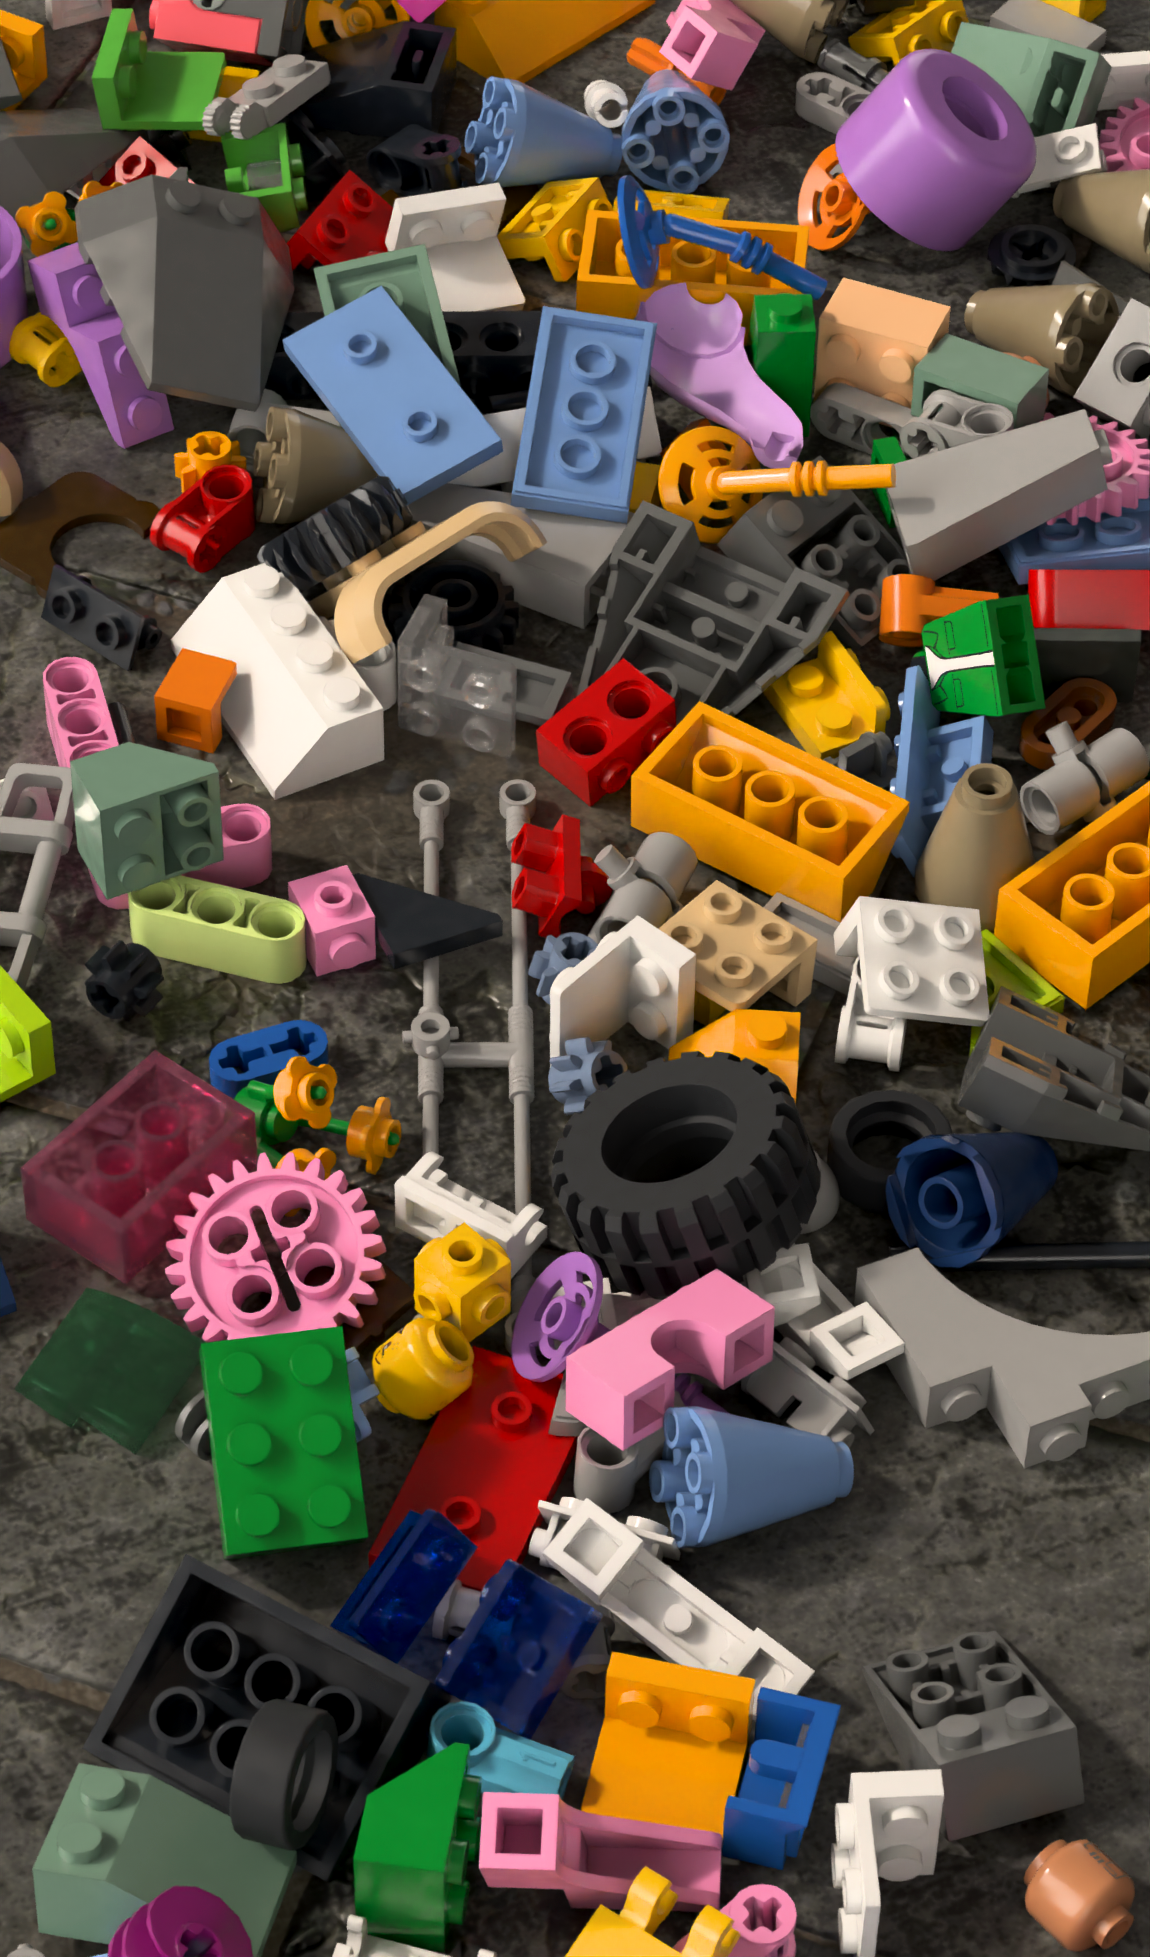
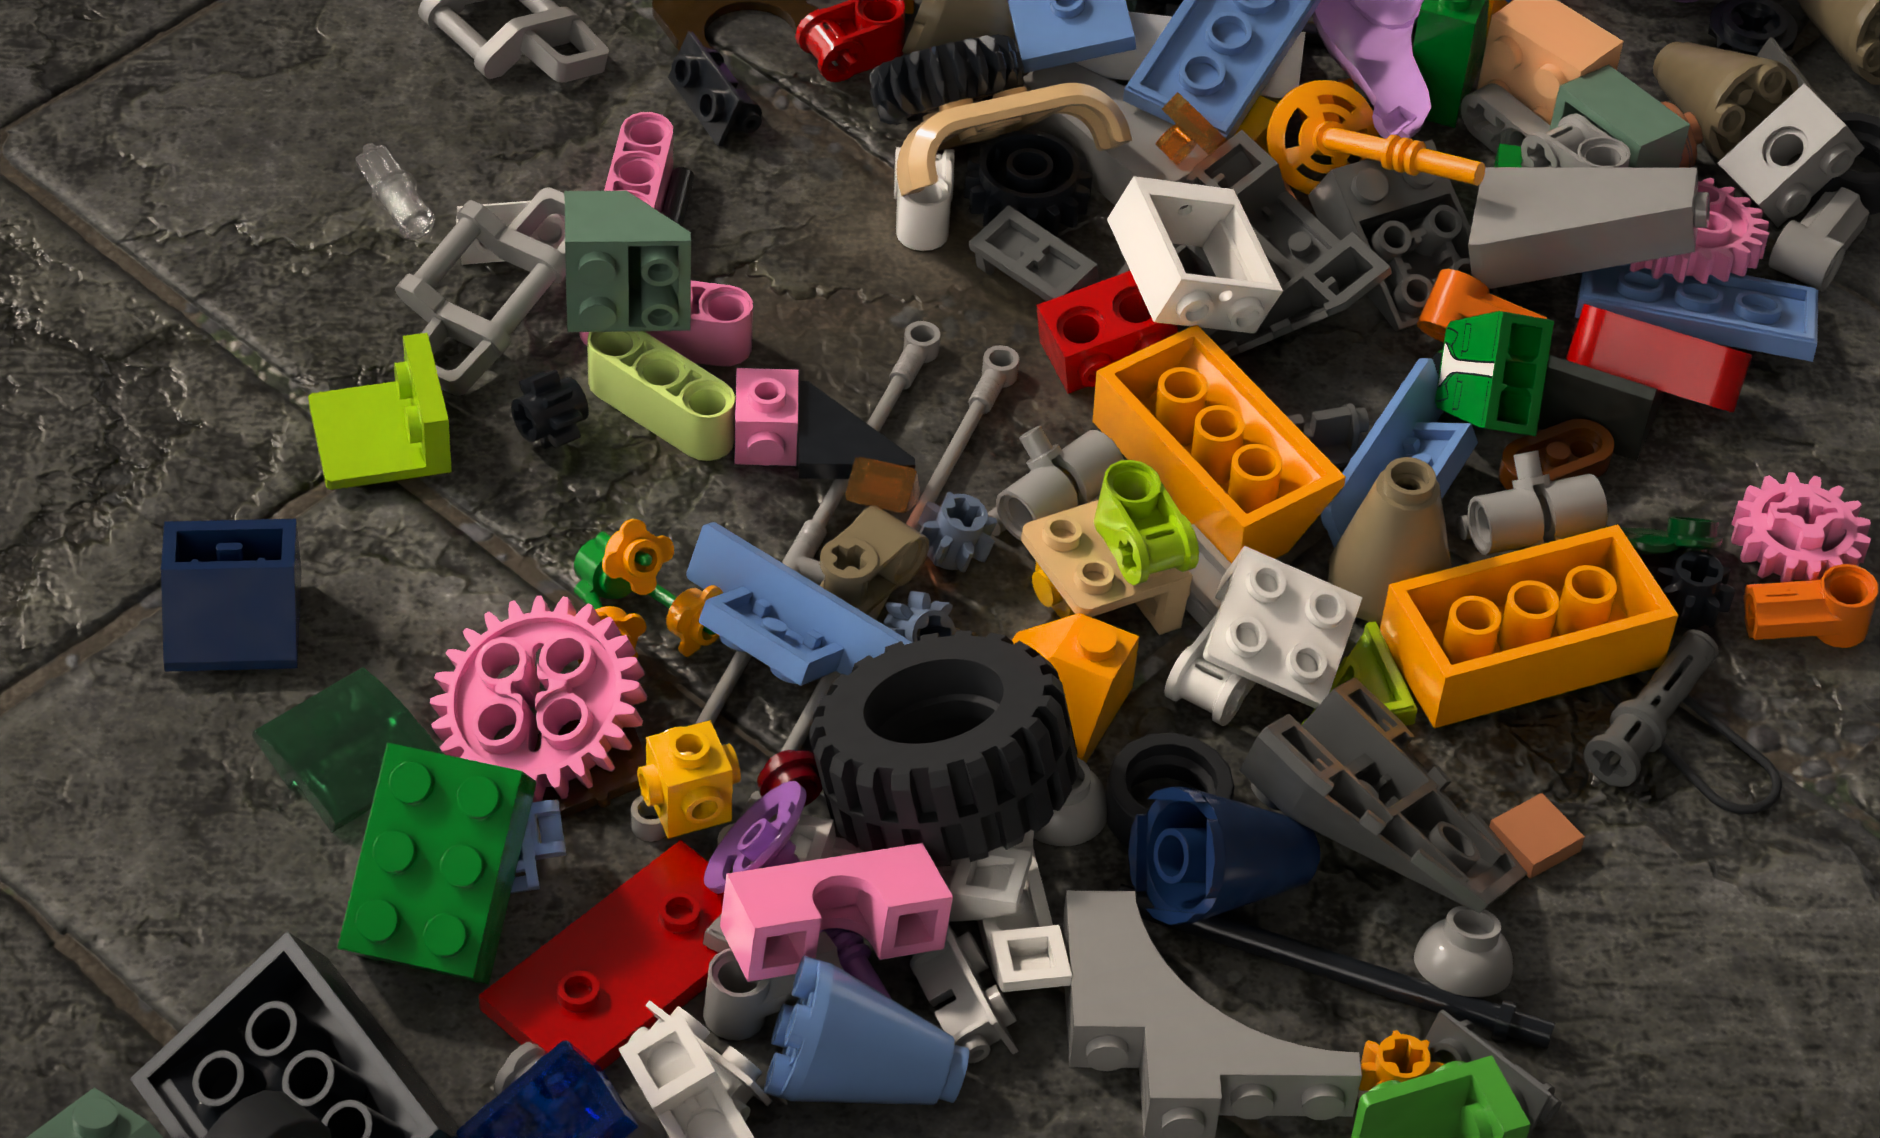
camera: 20 degrees right, 0 degrees up
(133, 1161) = (456, 562): clear pink brick -> none
(191, 700) = (744, 185): orange panel -> none
(265, 1054) = (652, 508): blue beam -> none
(295, 695) = (837, 196): white slope -> none
(405, 1584) = (482, 1035): clear blue bracket -> none
(422, 1368) = (615, 842): yellow head -> none
(430, 1035) = (795, 546): light grey piece -> none
(434, 1206) = (731, 710): white hinge -> none
(453, 690) = (979, 245): clear bracket -> none
(460, 1101) = (779, 612): none -> medium blue bracket
(487, 949) = (883, 485): none -> clear orange slope
(509, 1031) = (872, 558): none -> dark tan piece
(548, 1245) = (791, 766): none -> dark red plate
(563, 876) = (997, 450): red hips -> none
(597, 513) = (1188, 131): none -> clear orange tile
(617, 619) = (1151, 220): none -> white window
(628, 978) = (983, 556): white bracket -> none
(757, 906) = (1143, 523): none -> lime piece
(829, 700) = (1338, 365): yellow bracket -> none

